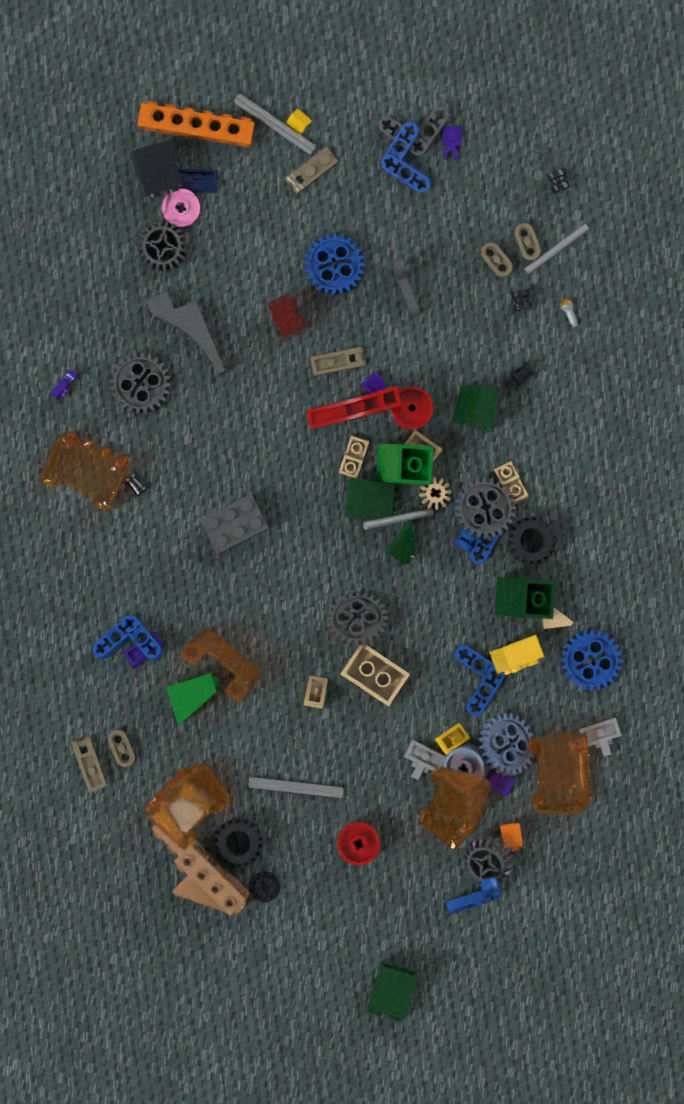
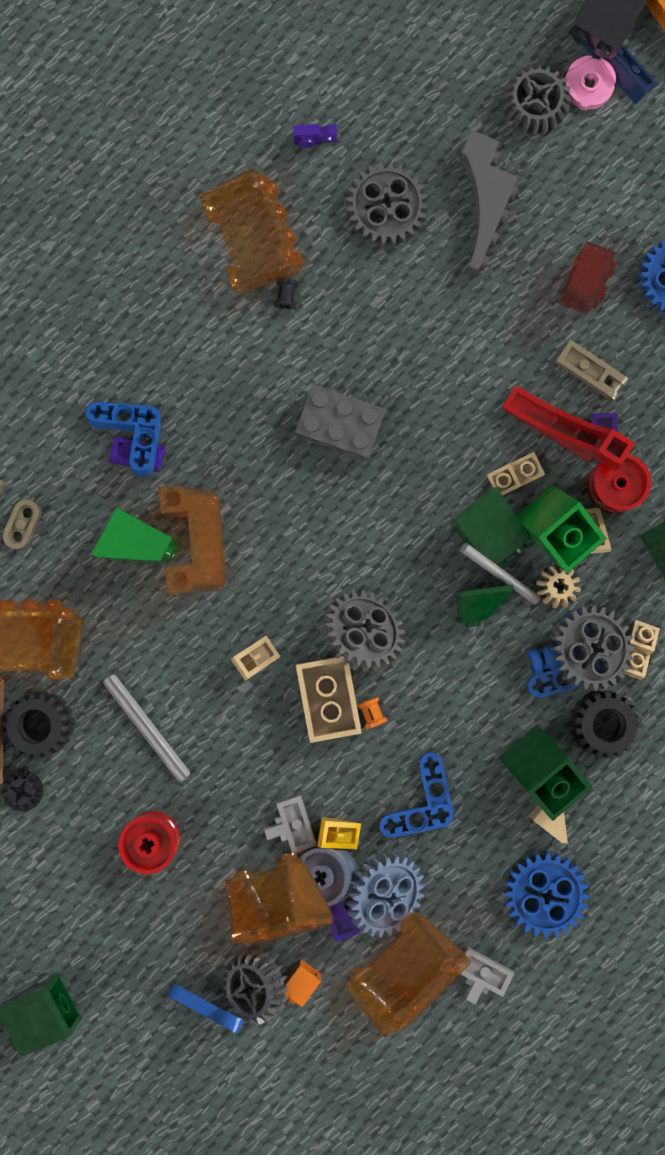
camera: 45 degrees right, 0 degrees up
(405, 658) = (372, 712): none -> orange bush
(517, 655) = (482, 820): yellow brick -> none

